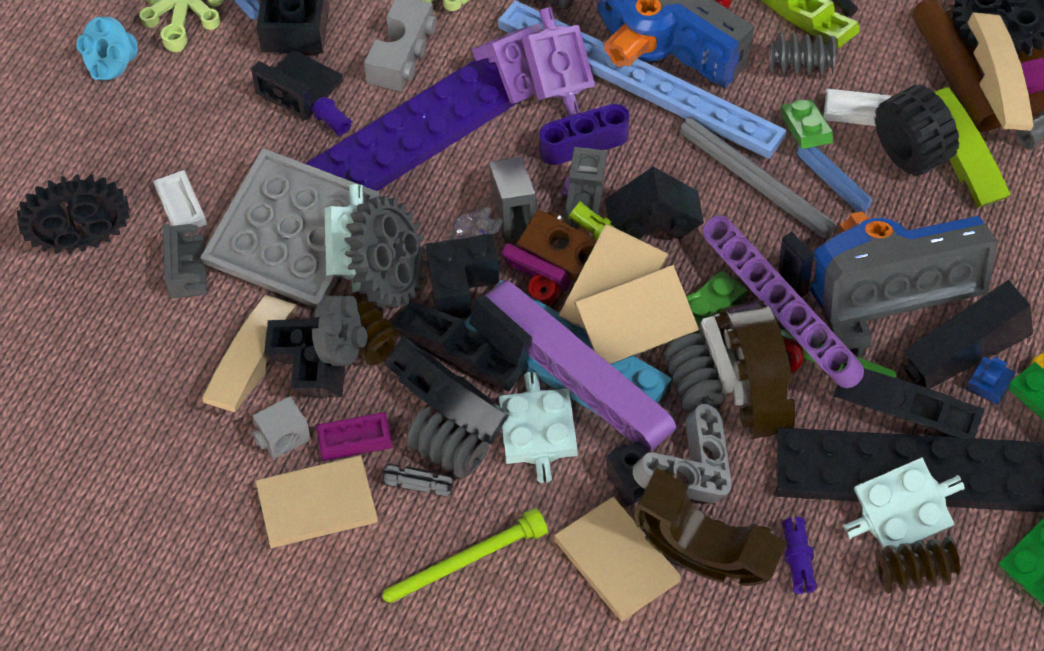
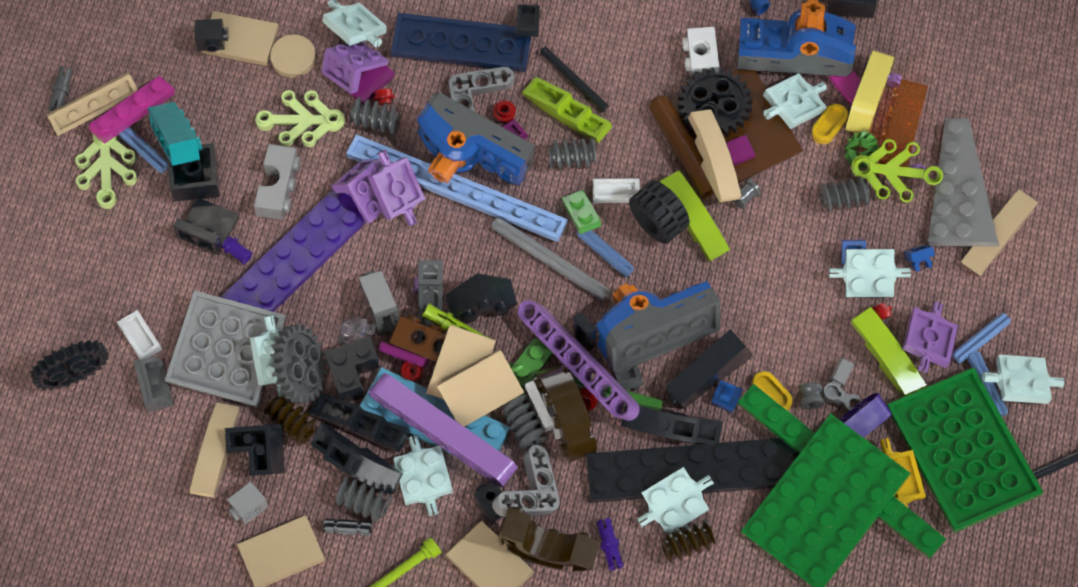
camera: 10 degrees left, 10 degrees up
(106, 48) = (59, 218): medium azure plate -> none
(338, 330) = (277, 432): dark grey plate -> none
(354, 436) = (298, 501): magenta plate -> none
(500, 330) = (388, 412): black tile -> none
(592, 129) = (427, 232): dark purple beam -> none

